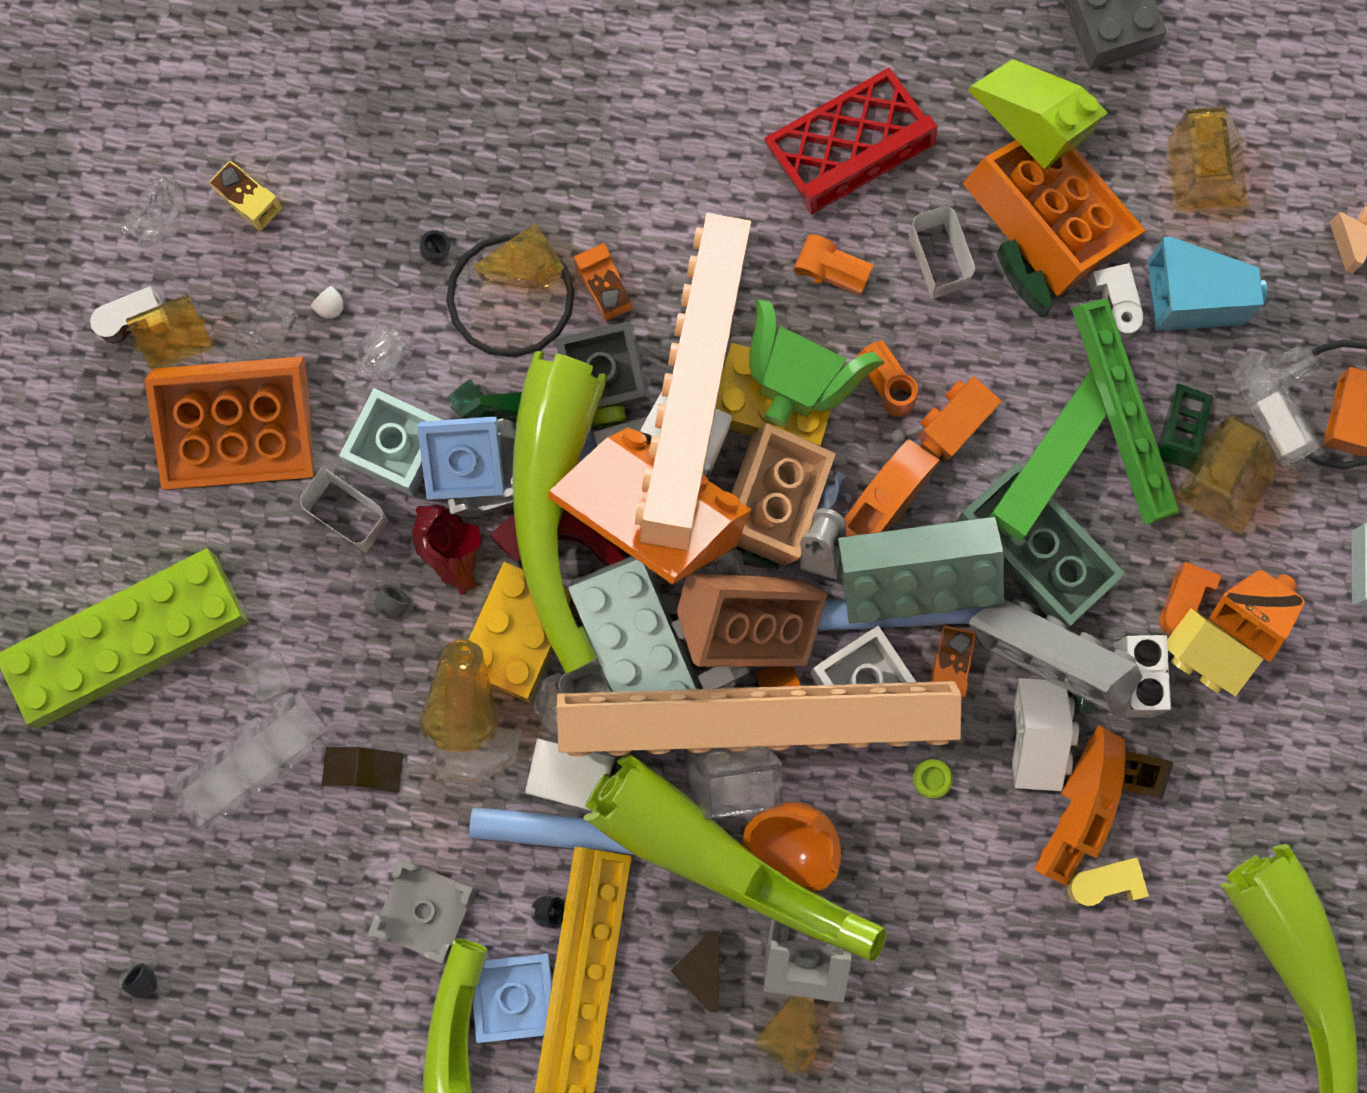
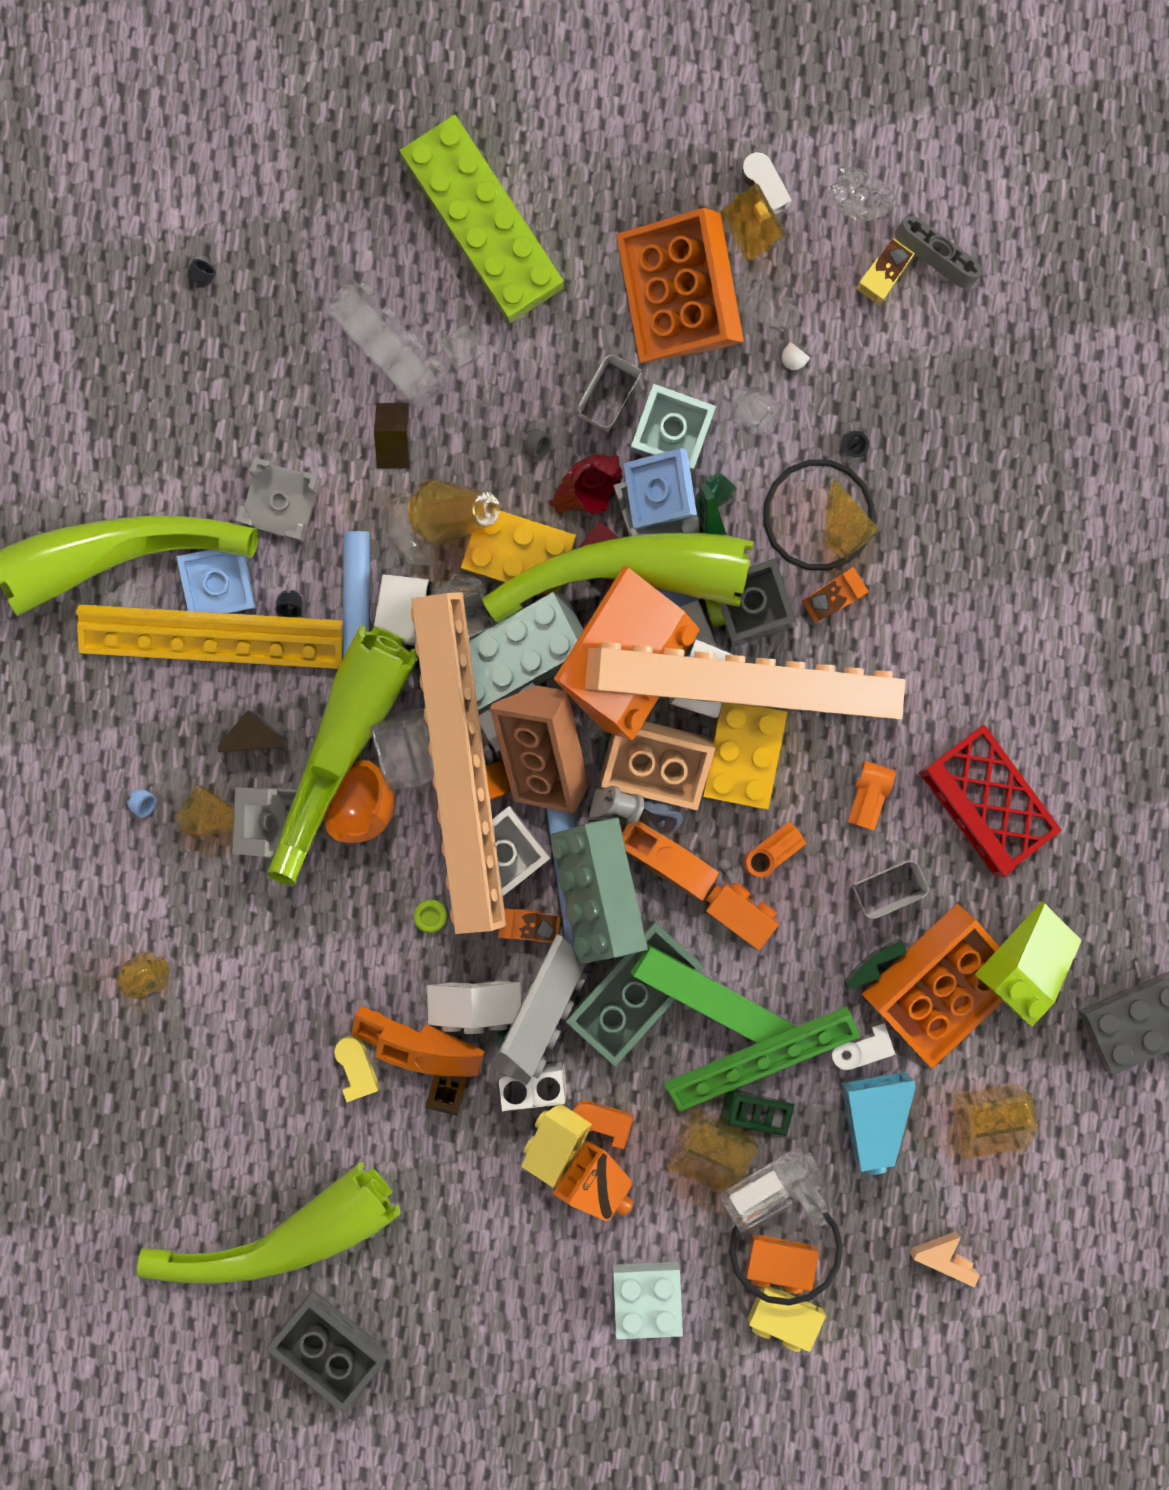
camera: 80 degrees right, 10 degrees up
(231, 136) = (955, 263): none -> dark grey beam
(800, 372) = (761, 773): bright green torso -> none

